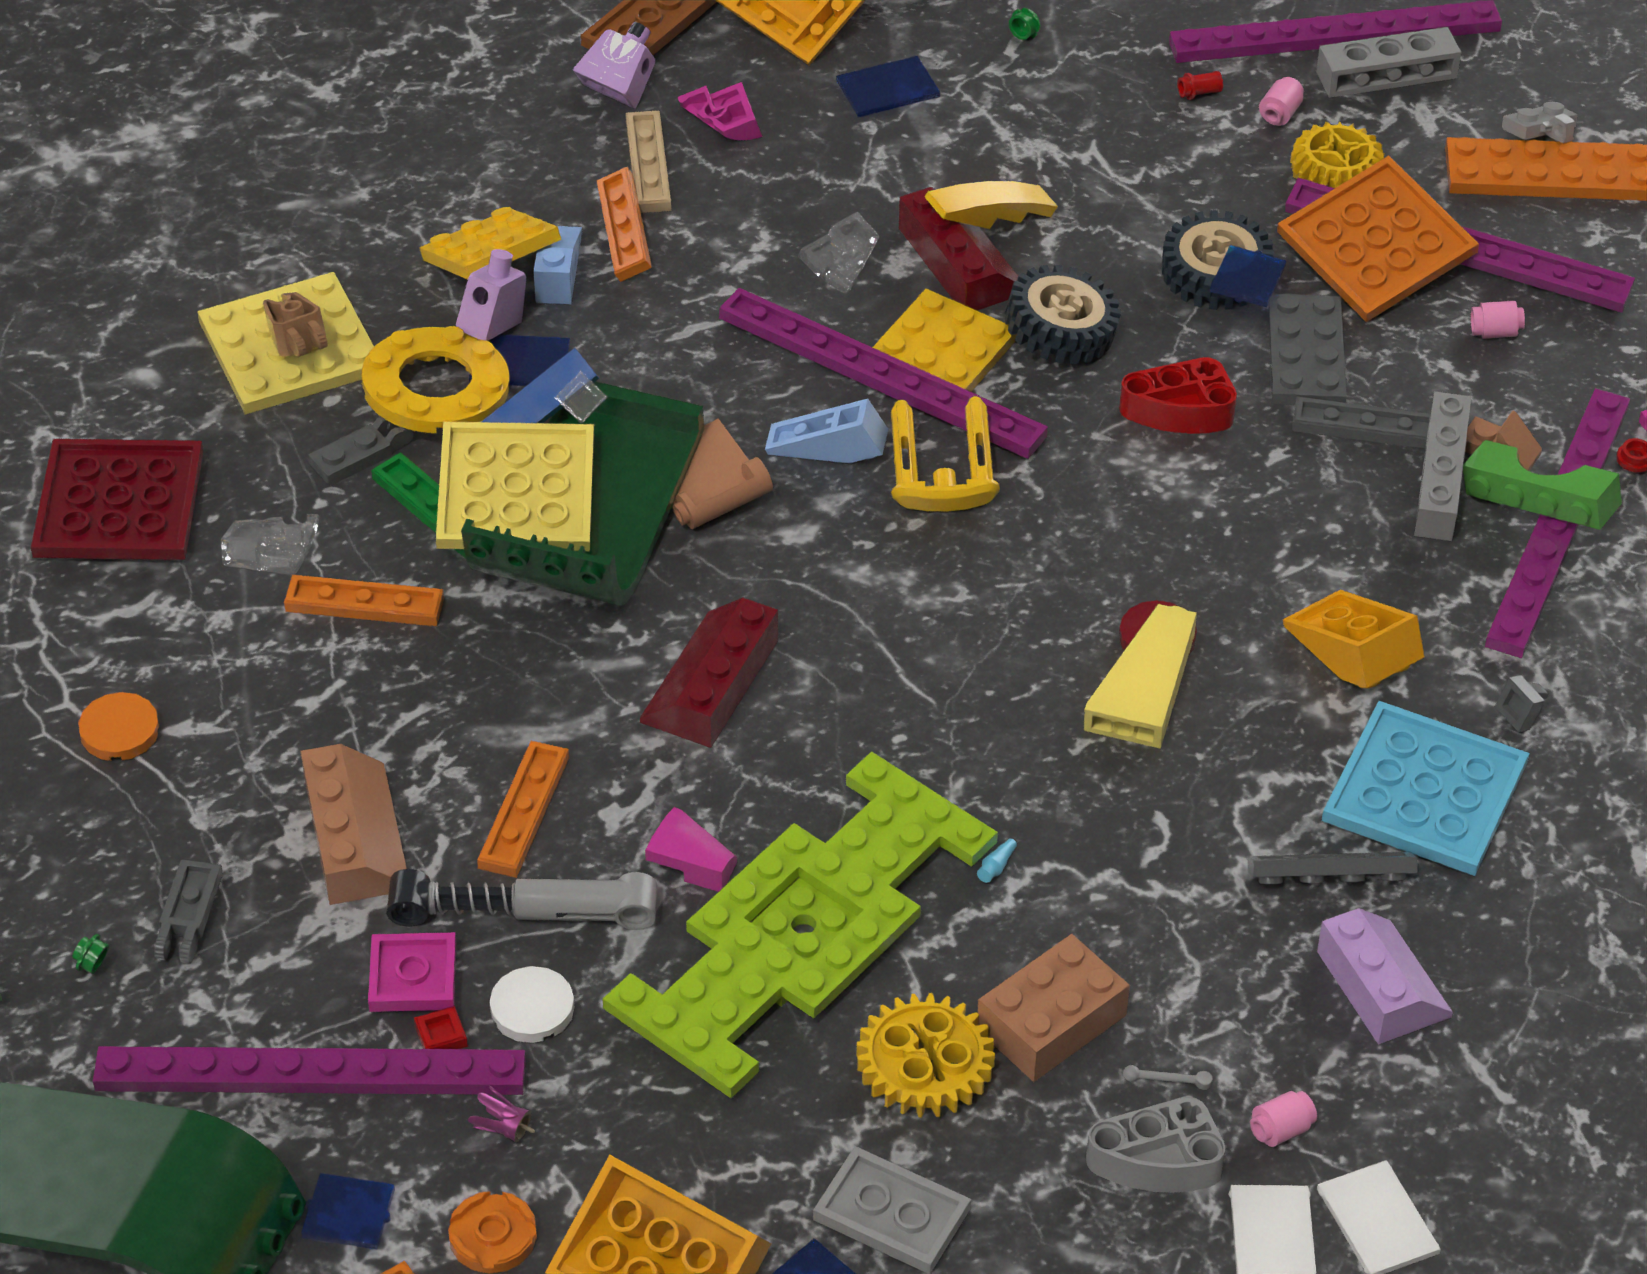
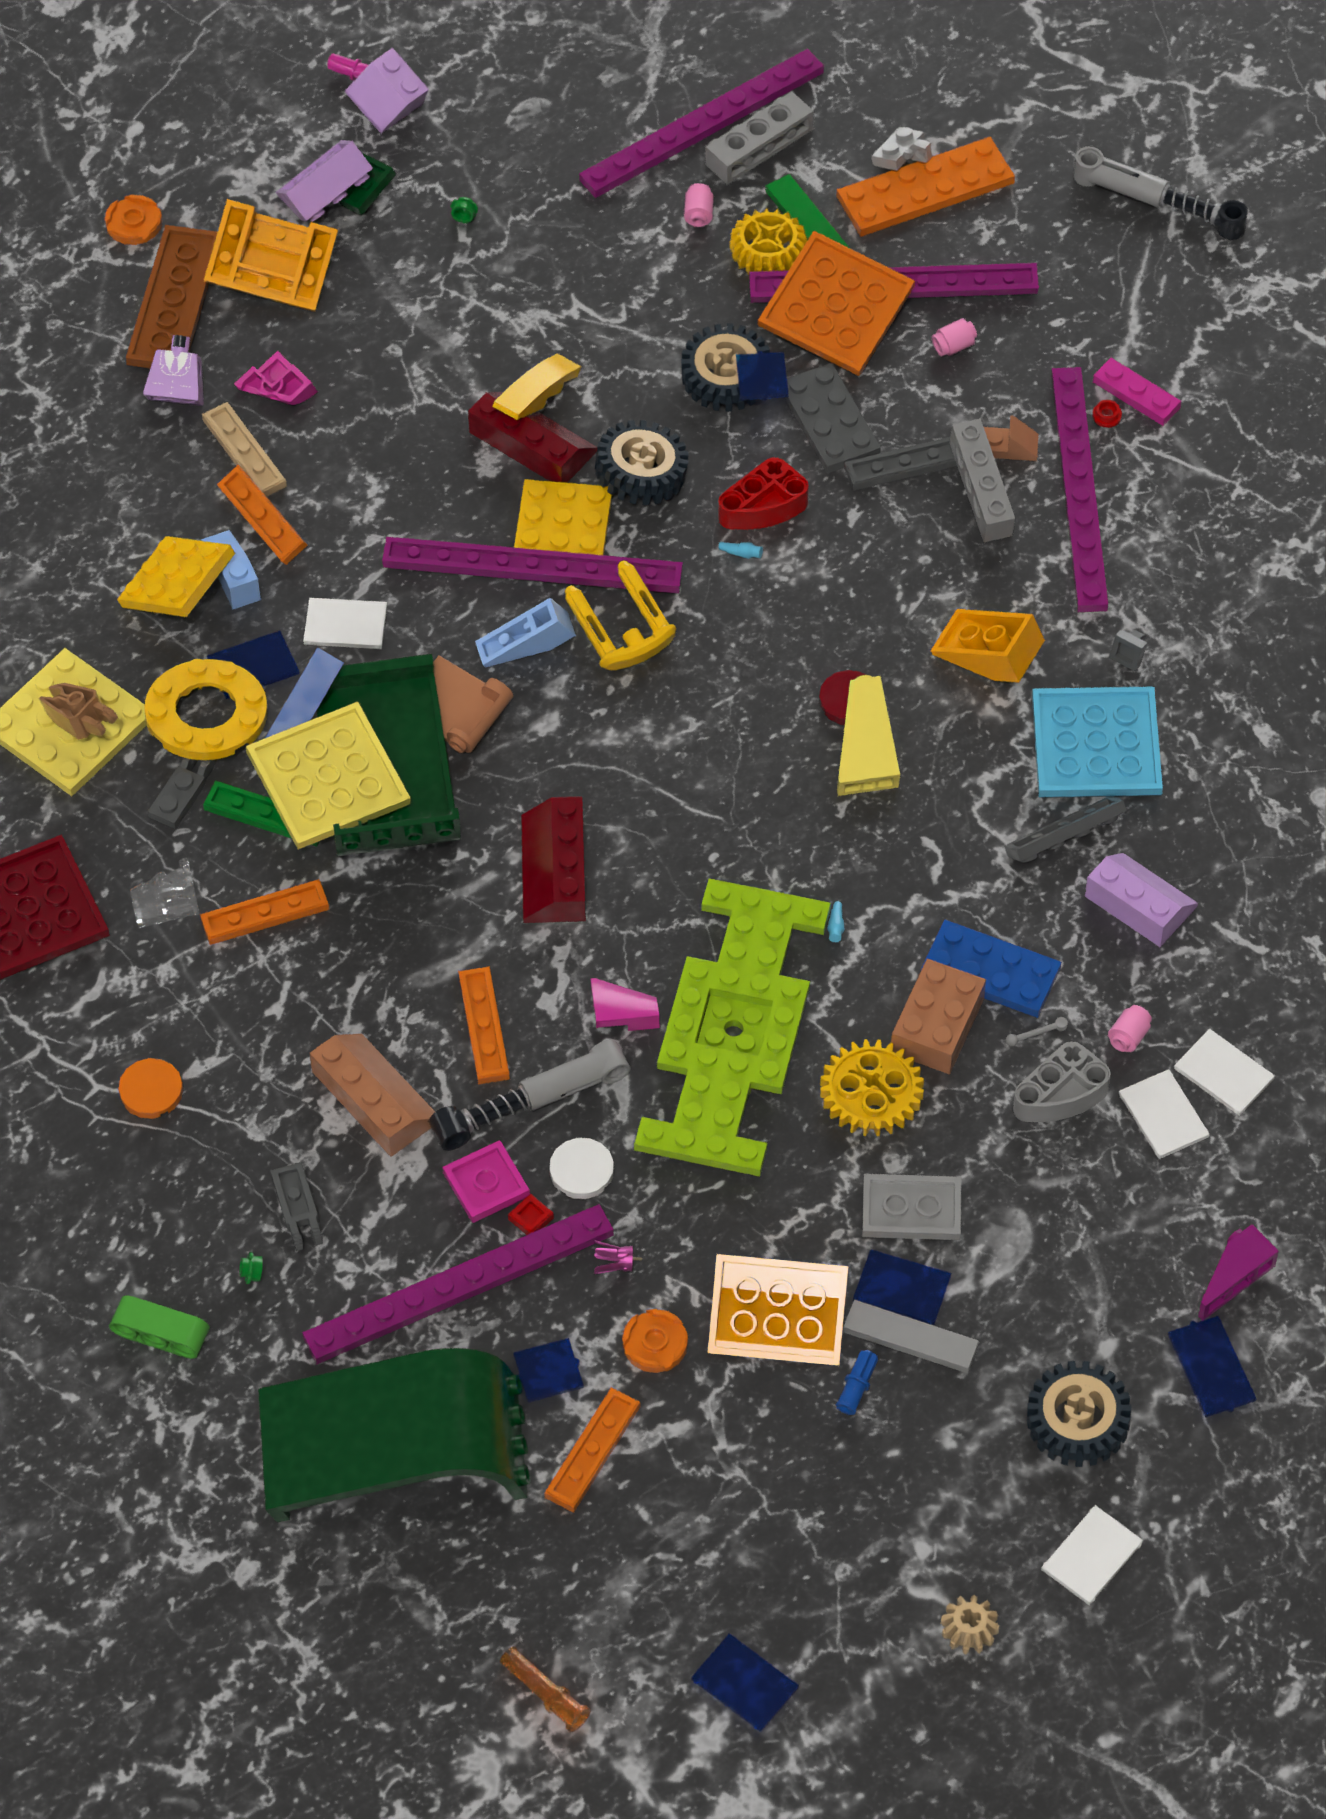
camera: 25 degrees left, 10 degrees up
(493, 298) = (215, 616): lavender torso -> none
(581, 397) = (340, 684): clear tile -> none
(644, 357) = (345, 623): none -> white piece
(841, 252) = (443, 473): clear slope -> none
(888, 86) = (388, 307): clear blue piece -> none
(1126, 441) = (744, 549): none -> medium azure piece
(1165, 990) = (1012, 973): none -> blue plate
(1199, 84) = (623, 216): red pin -> none
(1393, 133) = (792, 199): none -> green tile
(1580, 497) = (1094, 469): bright green arch -> none

